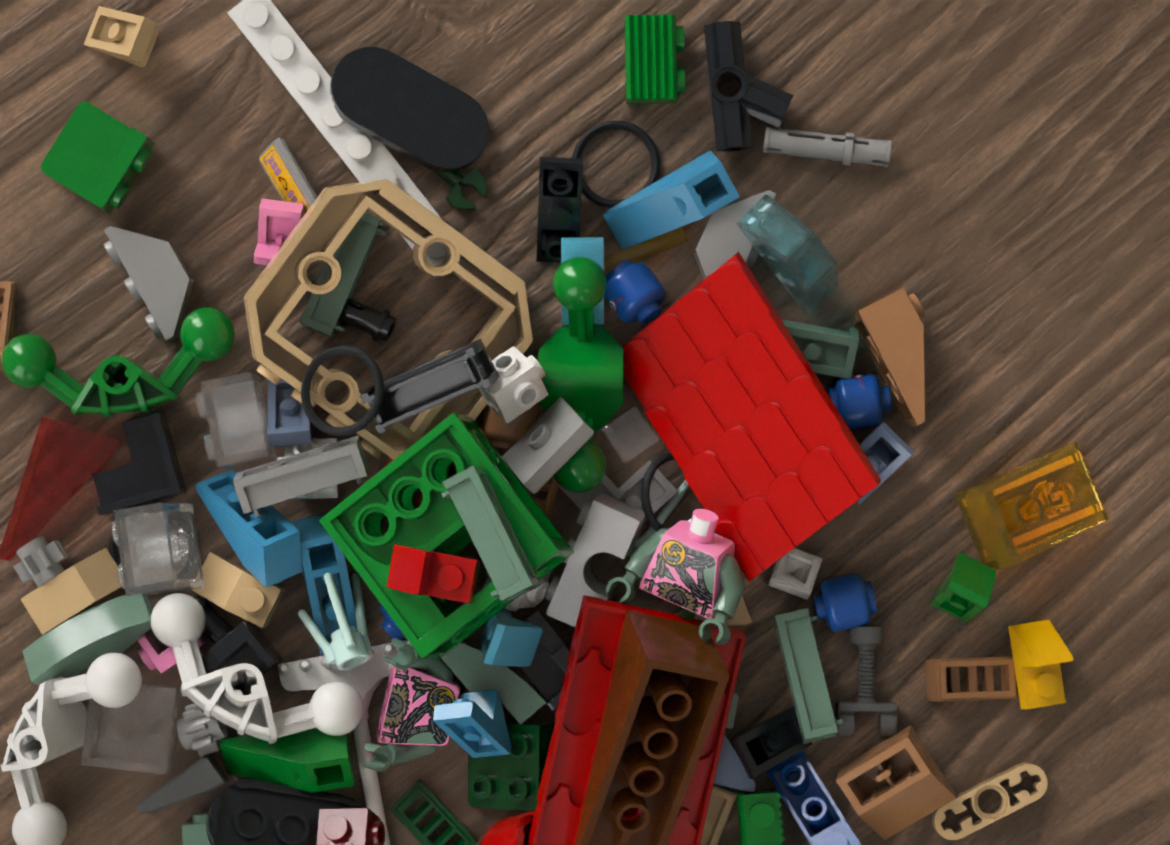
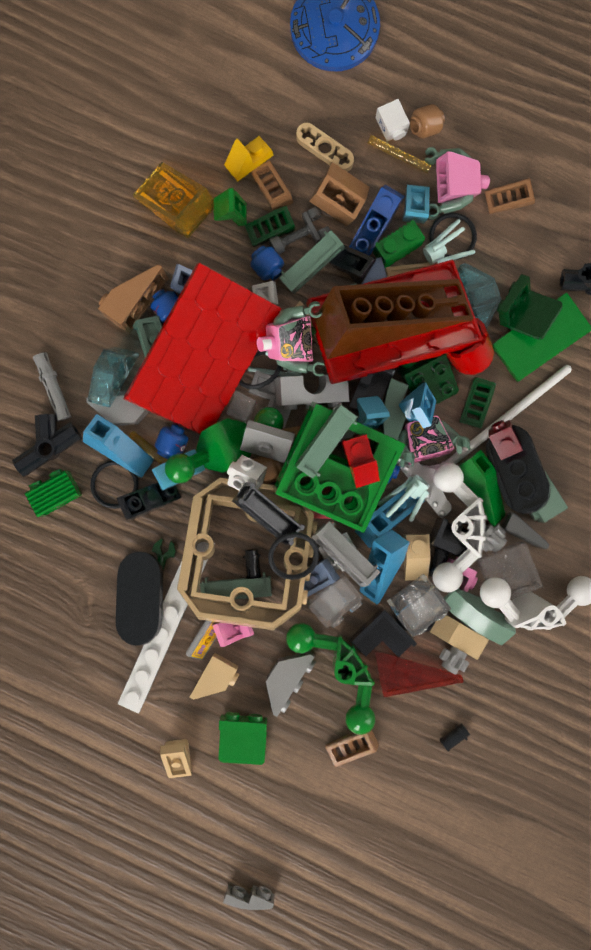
camera: 110 degrees left, 0 degrees up
(217, 165) = (215, 677): none -> tan slope
(919, 657) = (266, 219): none -> dark green slope

